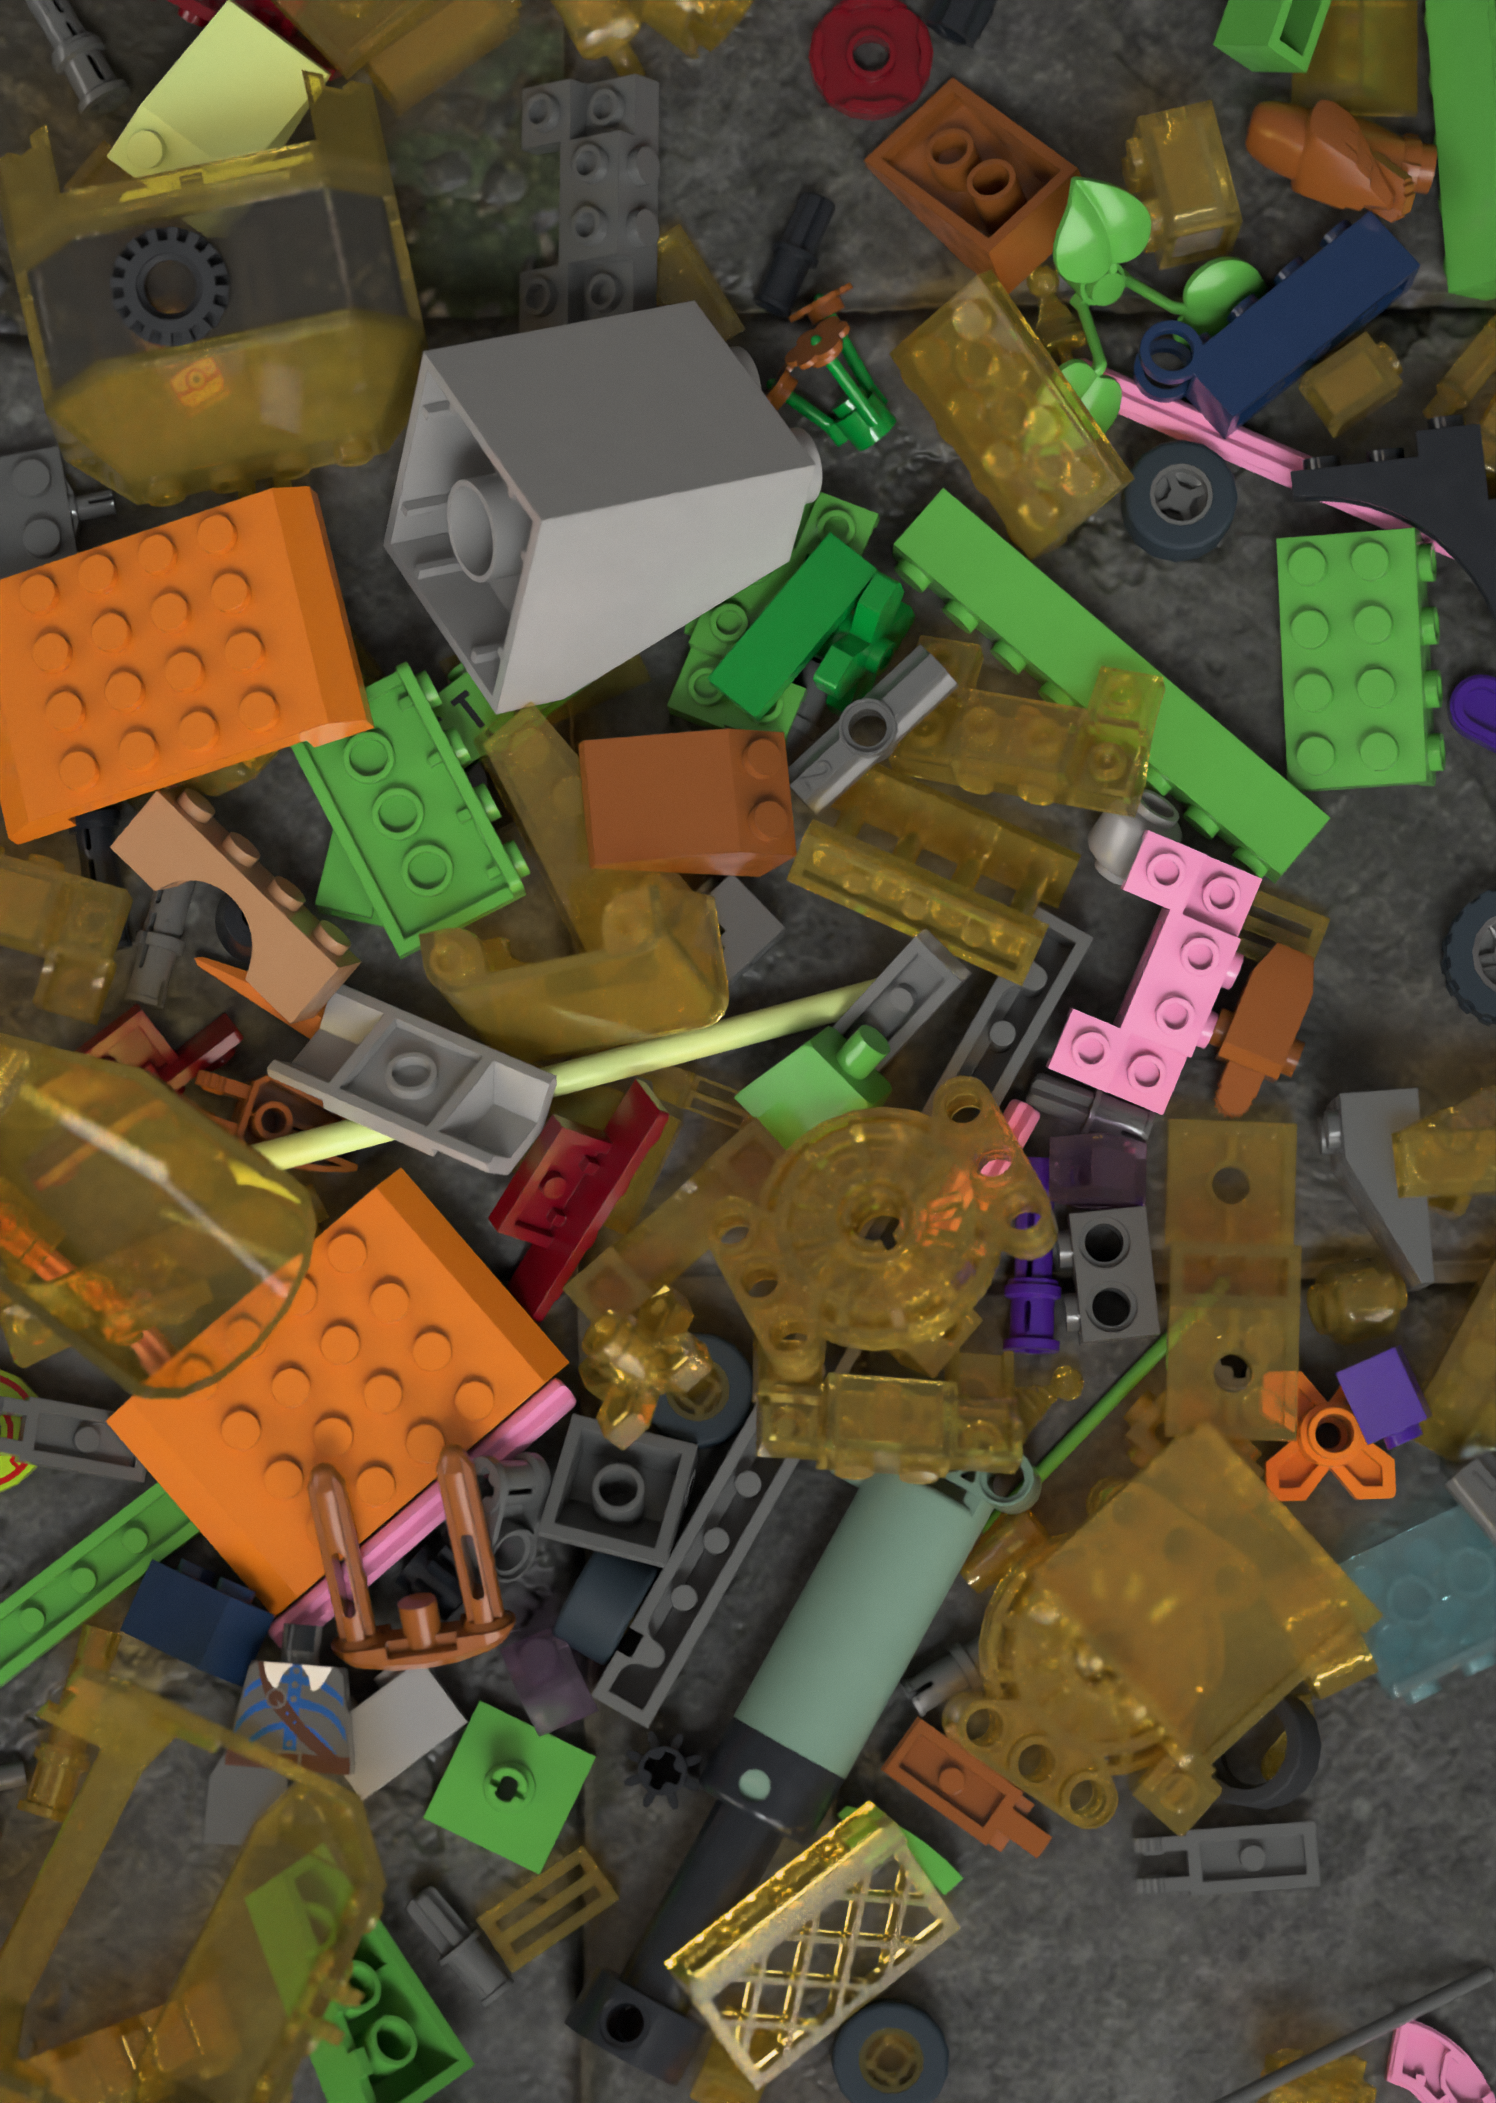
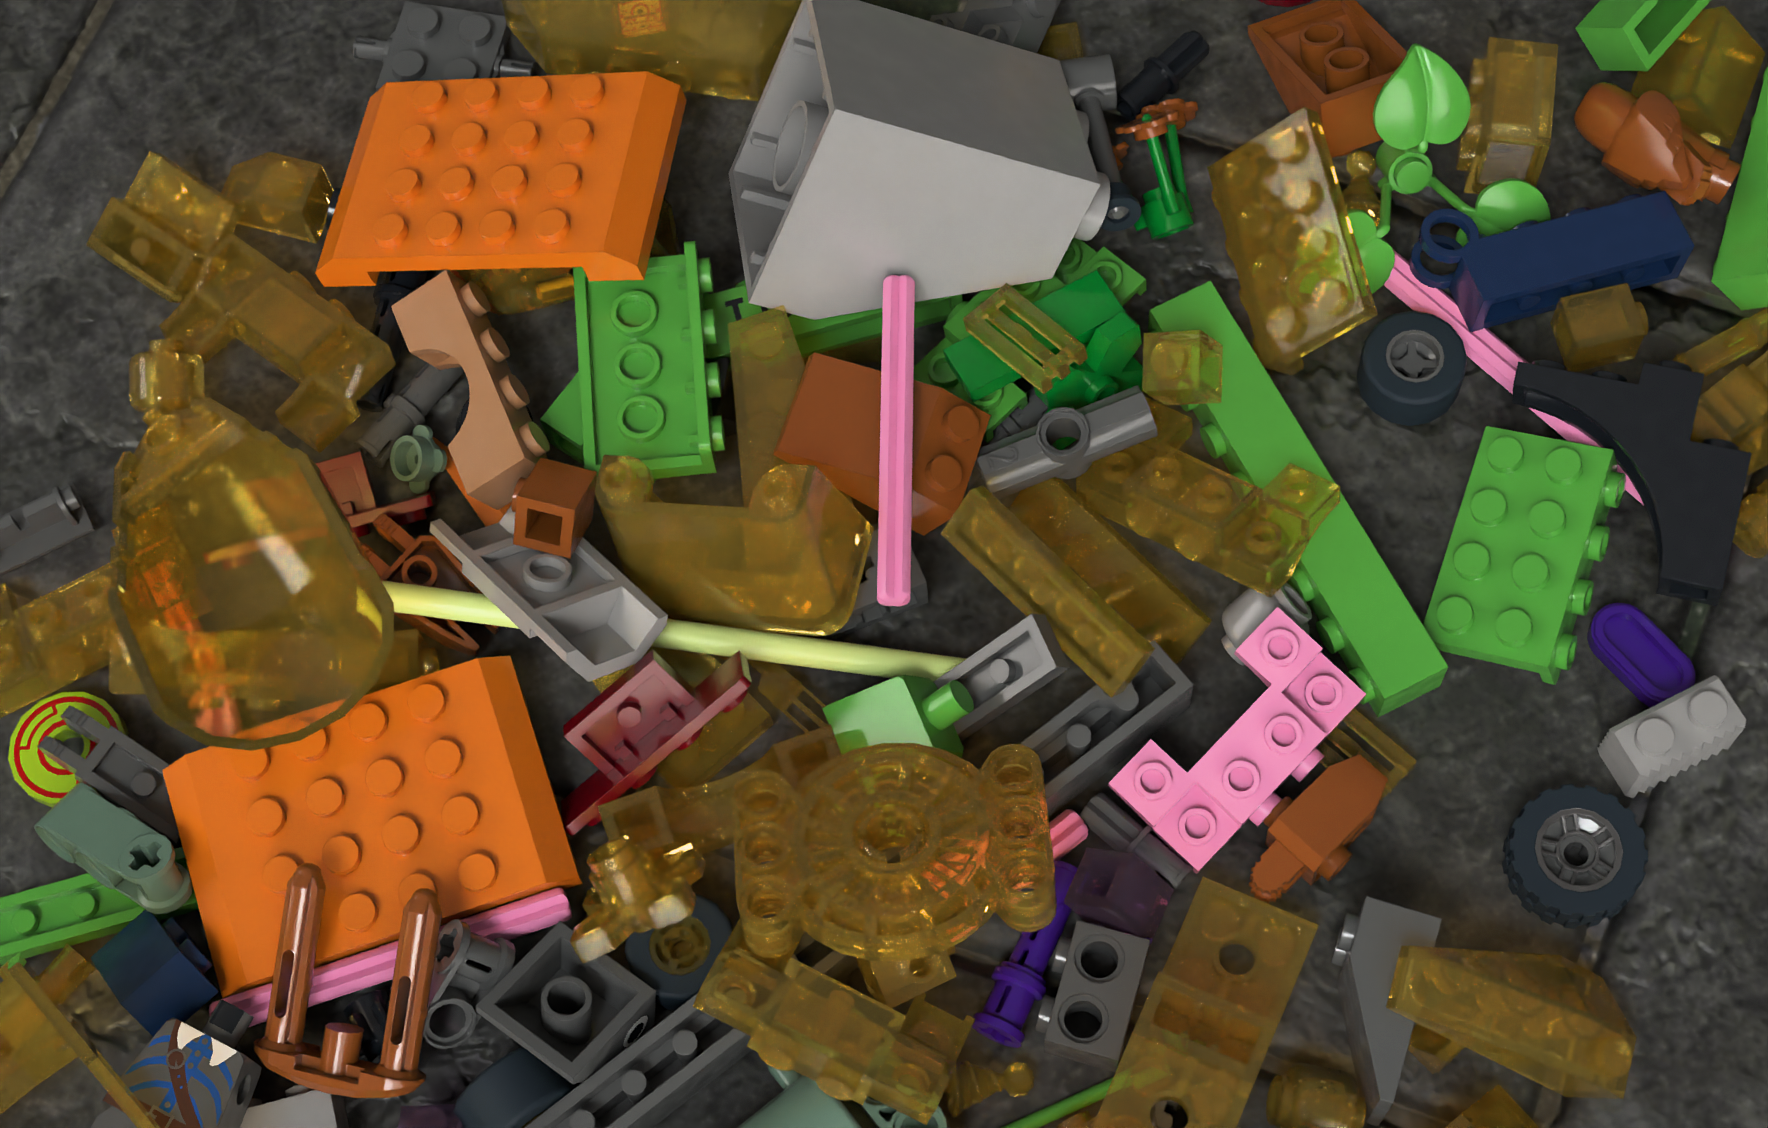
camera: 30 degrees right, 15 degrees down
(96, 1516) = (116, 849): none -> sand green piece
(189, 998) = (417, 459): none -> sand green plate
(385, 1004) = (553, 507): none -> dark orange brick
(711, 807) = (896, 442): none -> bright pink axle
(735, 312) = (1094, 91): none -> dark grey piece
(836, 662) = (1053, 365): none -> clear yellow tile
(957, 606) = (1182, 367): none -> clear yellow brick

